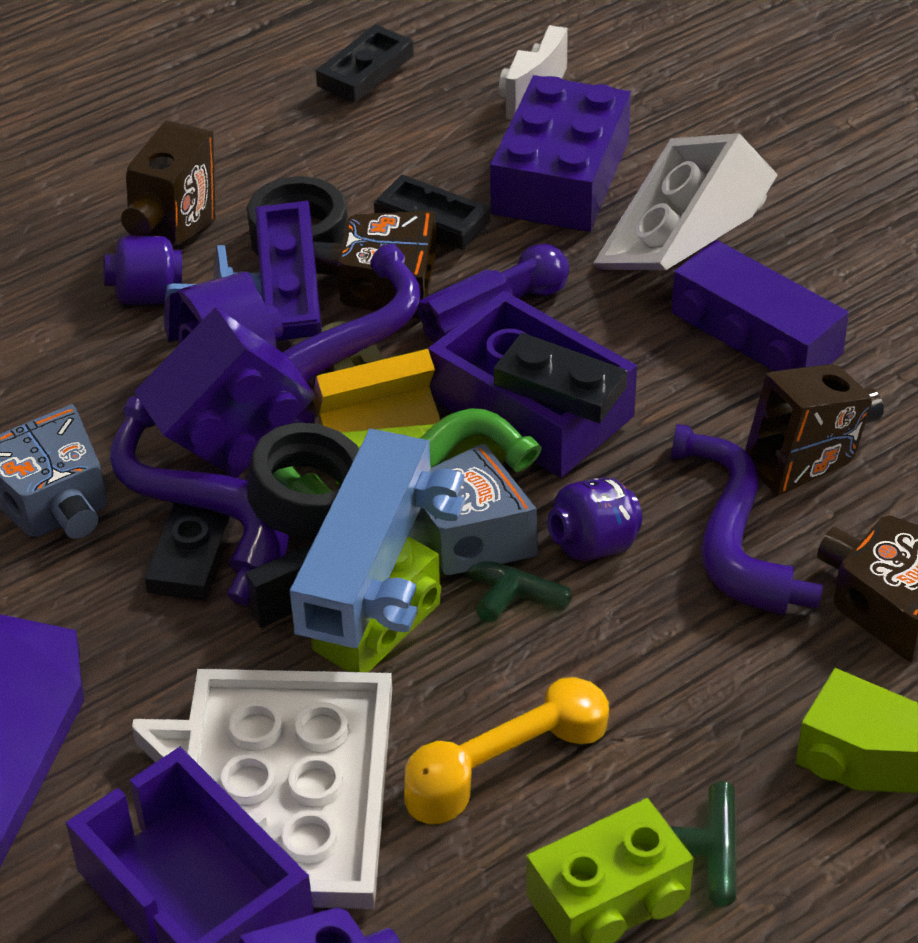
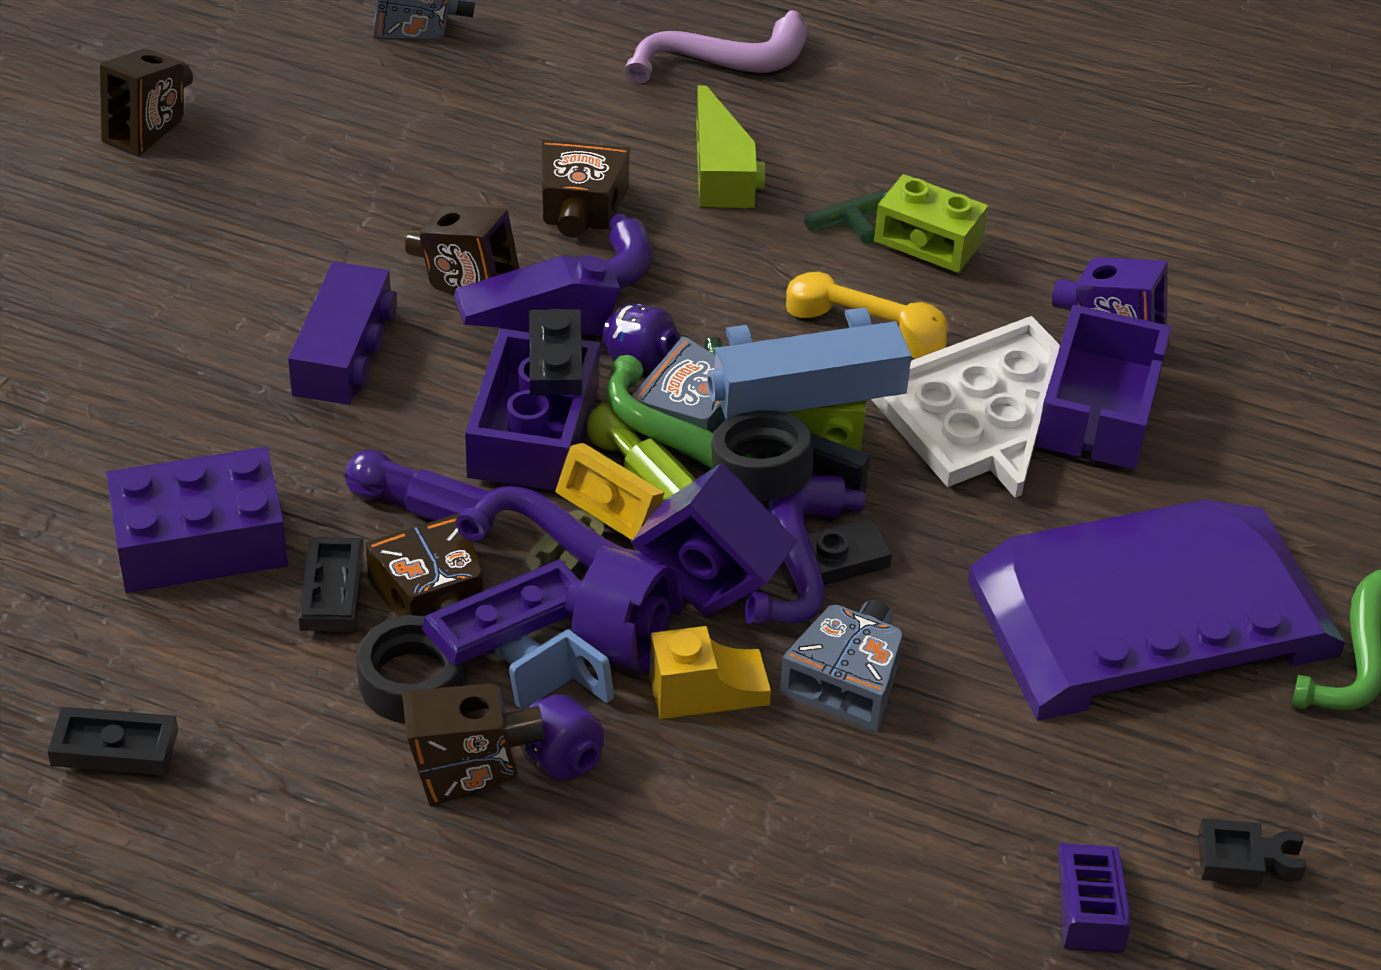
camera: 125 degrees left, 0 degrees up
(122, 361) = (700, 676): none -> yellow arch
(544, 60) = (48, 589): white slope -> none
(687, 201) = (259, 393): white slope -> none
(692, 451) = (558, 283): none -> dark purple slope

